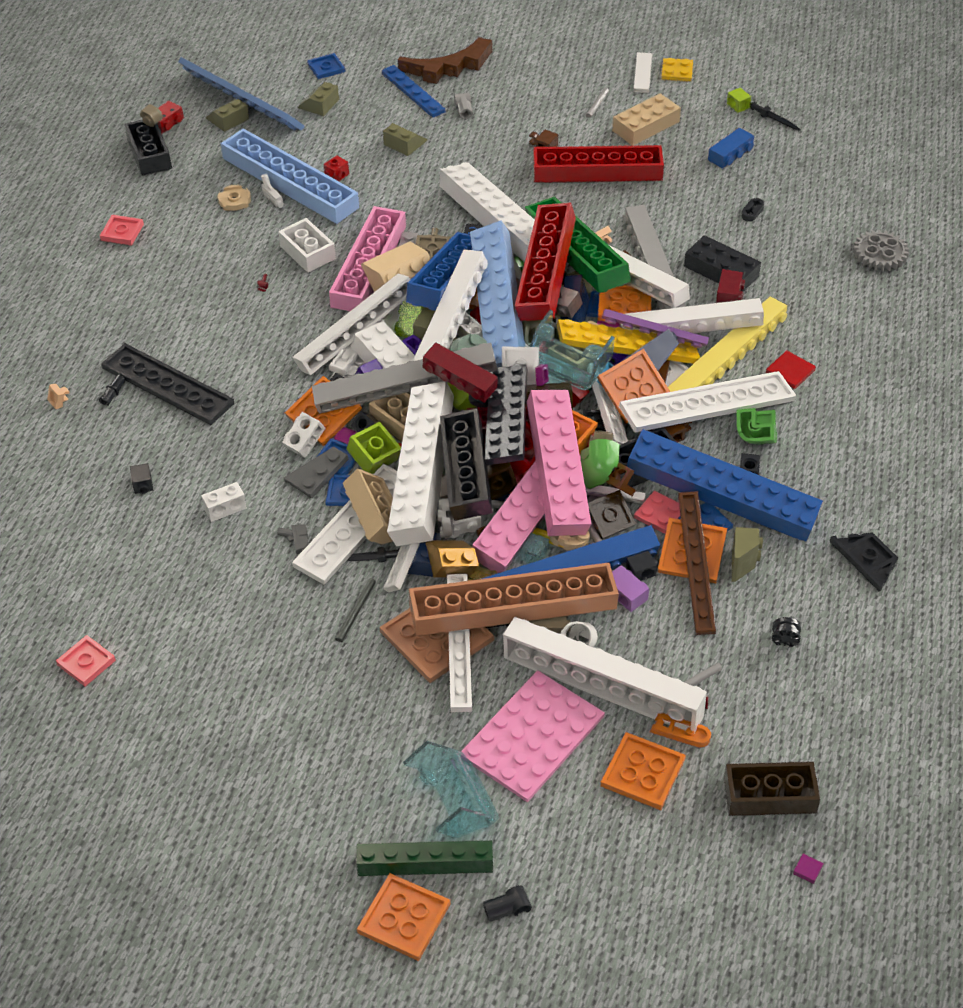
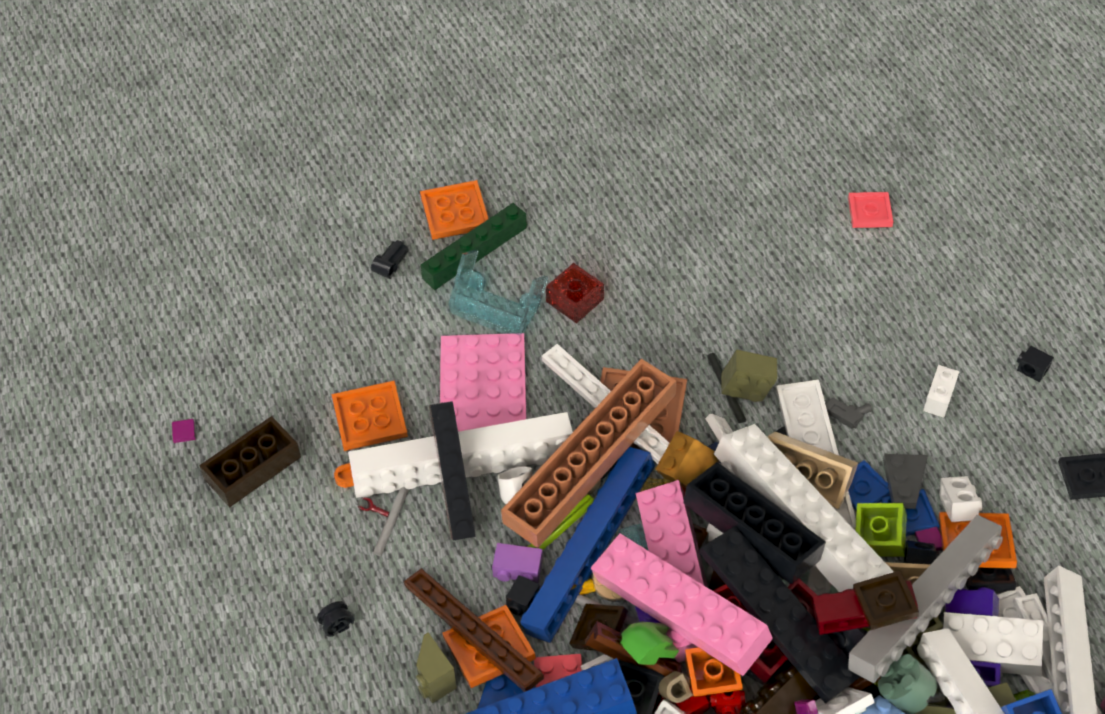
camera: 140 degrees right, 5 degrees up
(341, 586) = (749, 376): none -> olive brick
(388, 748) = (574, 292): none -> clear red brick
(452, 350) = (885, 600): none -> dark brown plate
(628, 644) = (452, 470): none -> black brick

